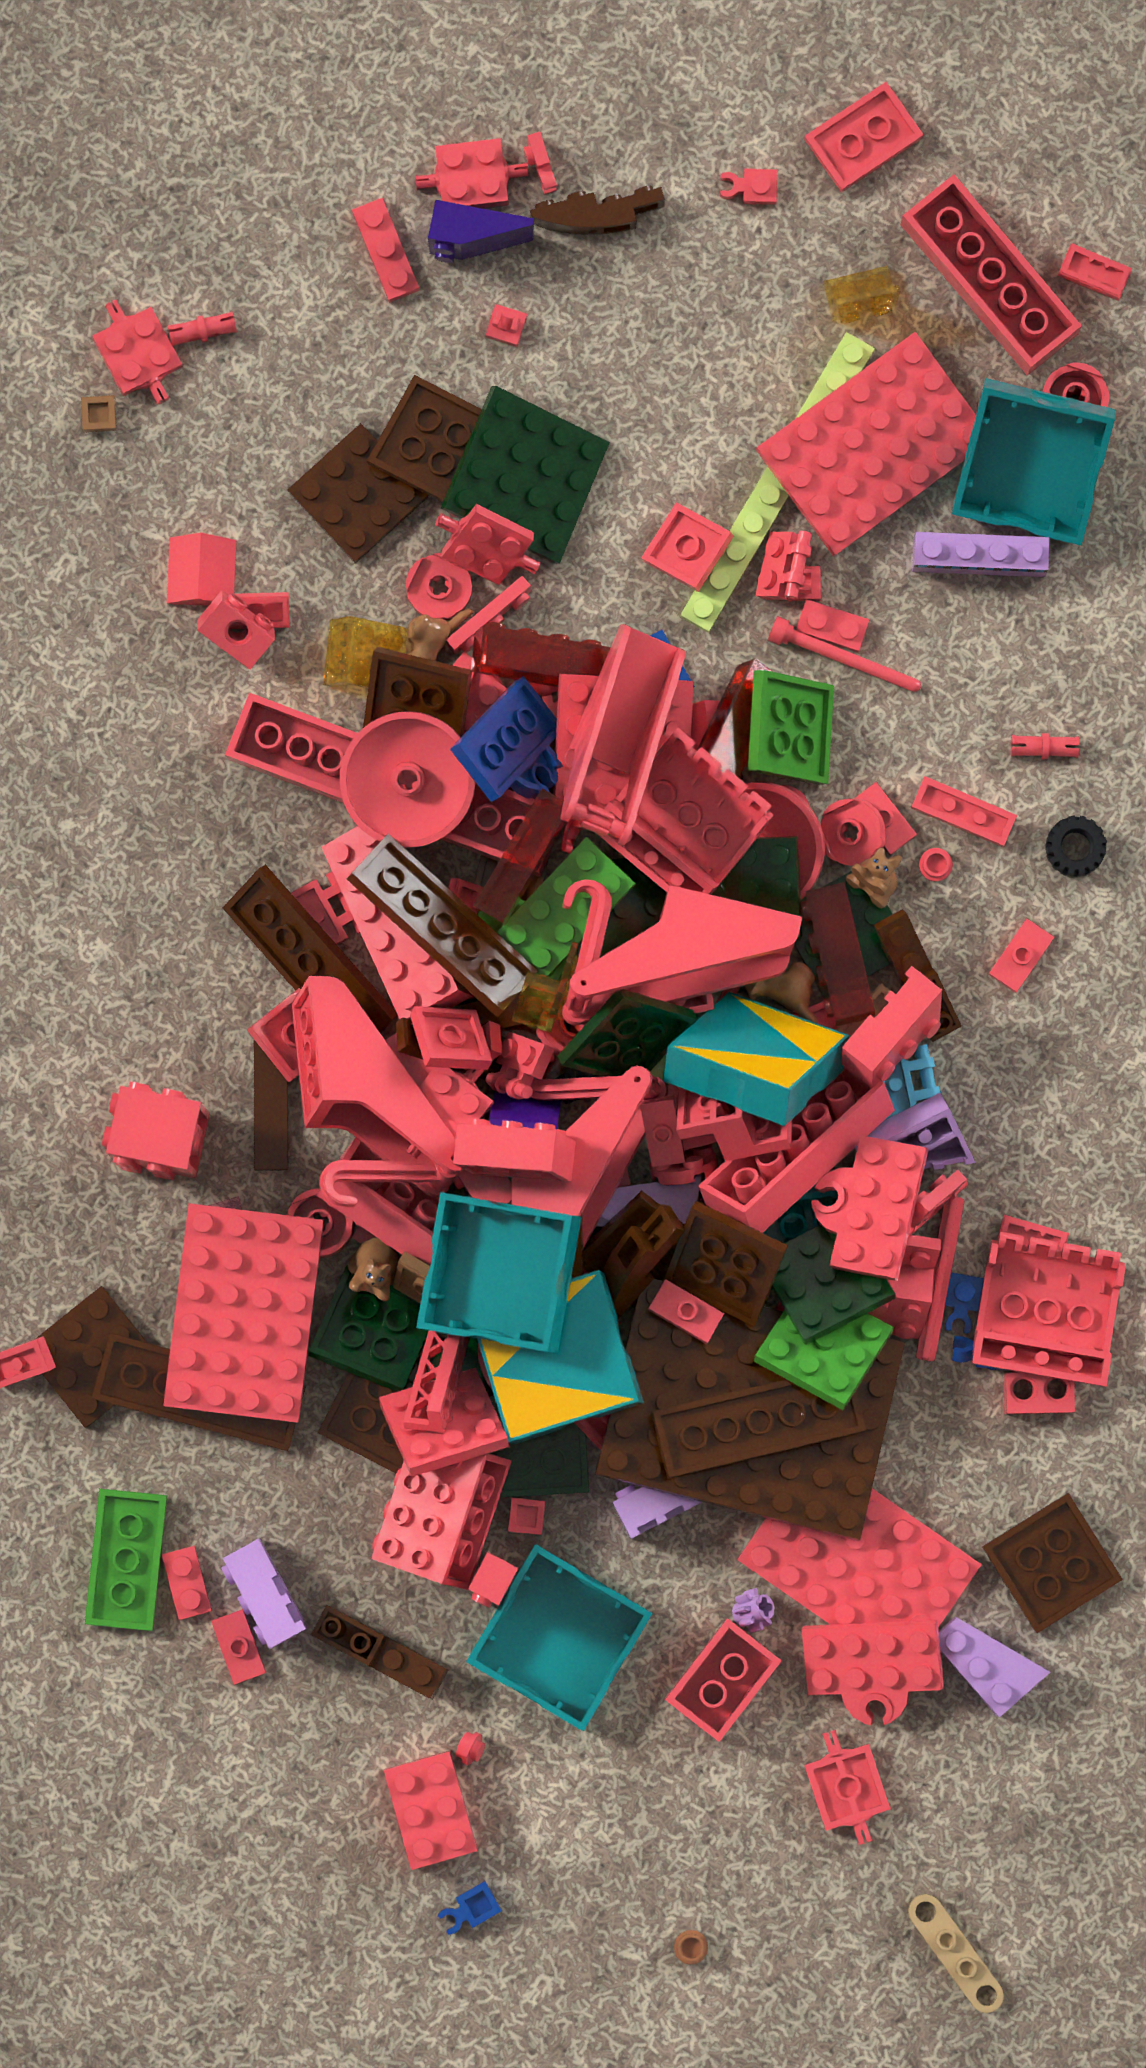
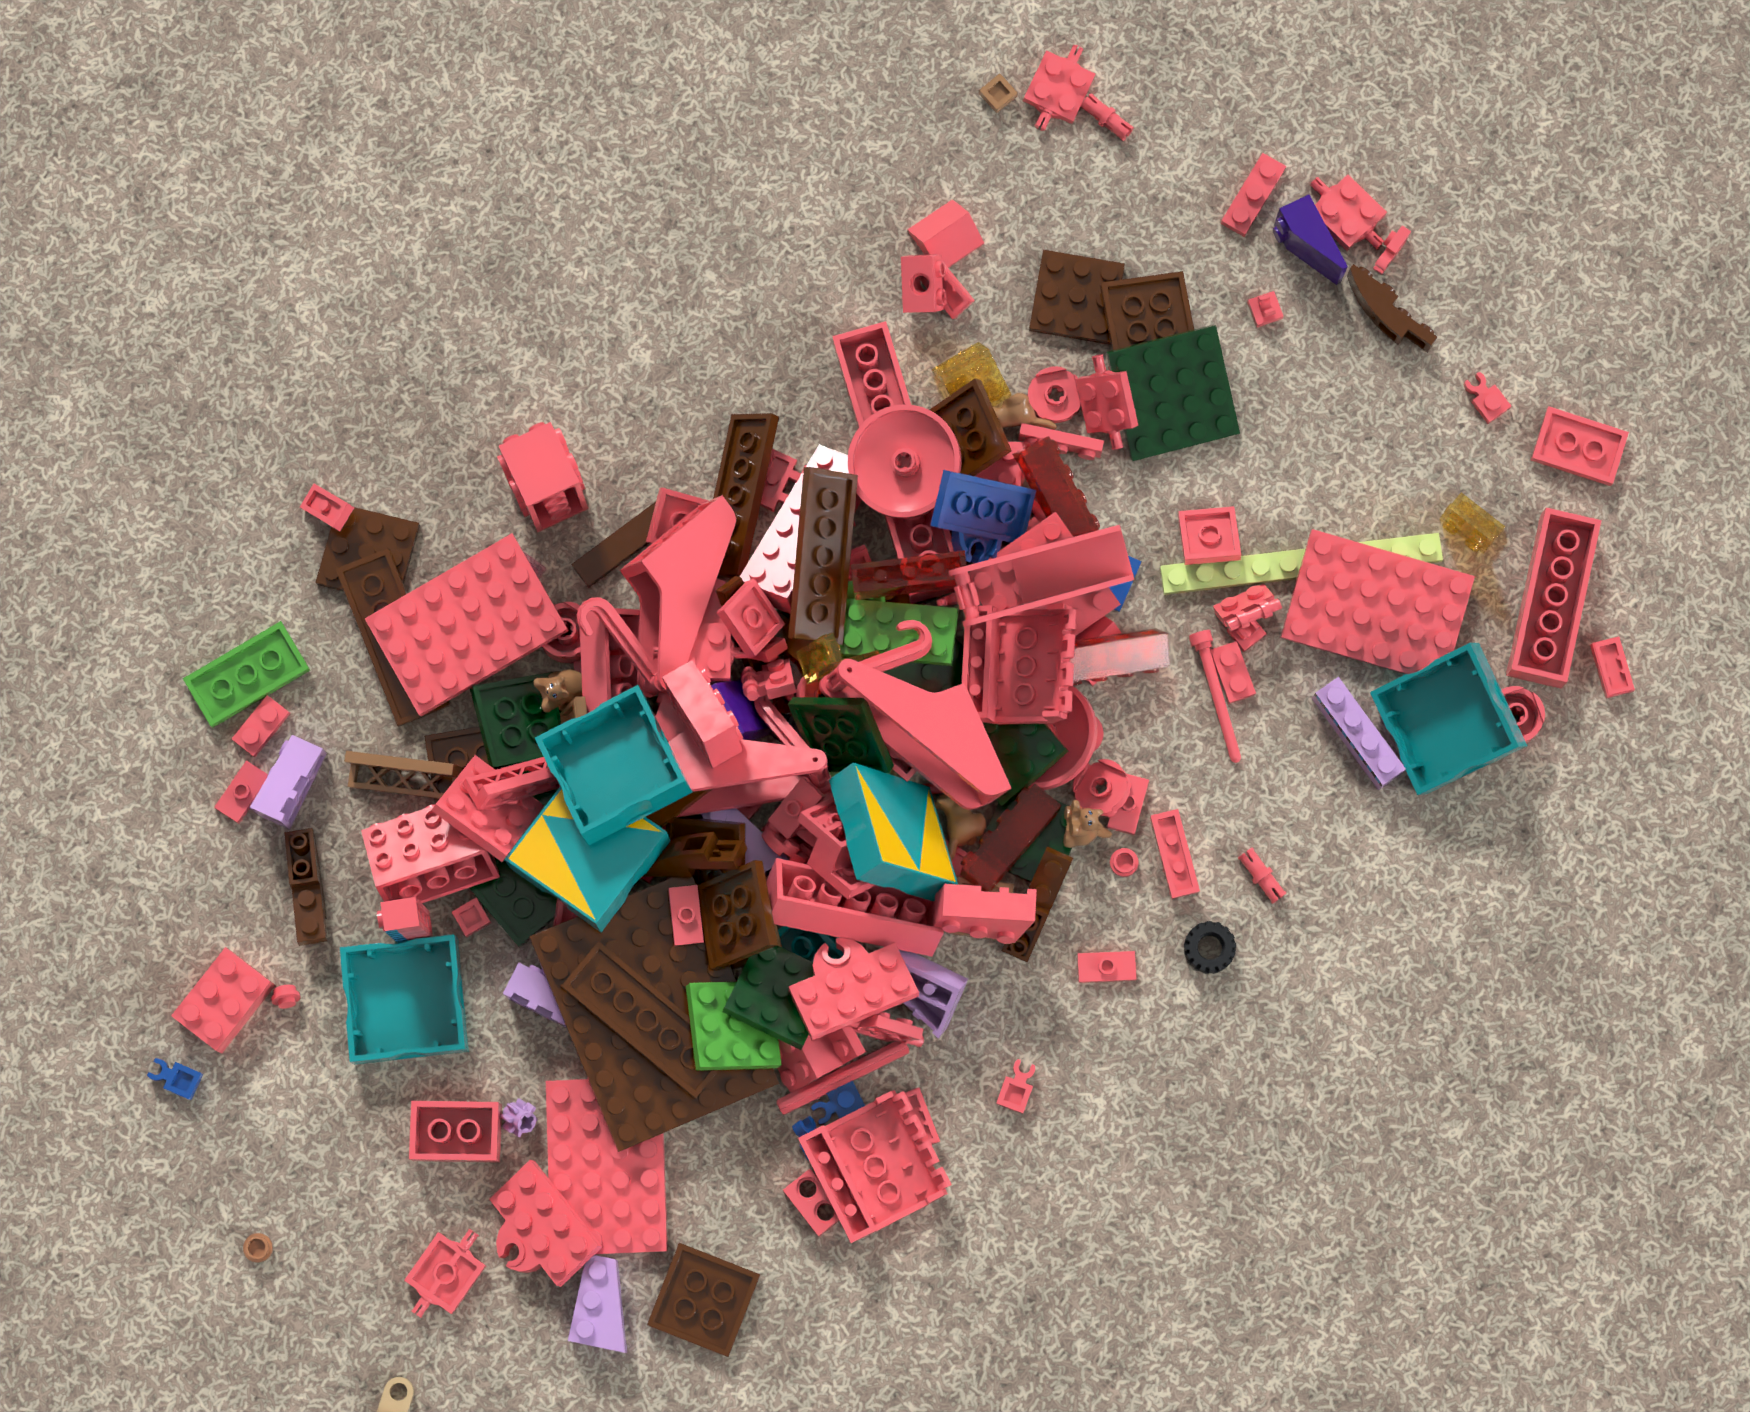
camera: 55 degrees right, 5 degrees down
(329, 1476) = (399, 764): none -> medium nougat fence
(791, 727) = (1139, 692): bright green plate -> none
(900, 1082) = (954, 947): medium azure plate -> none
(1075, 1128) = (1015, 1091): none -> coral plate

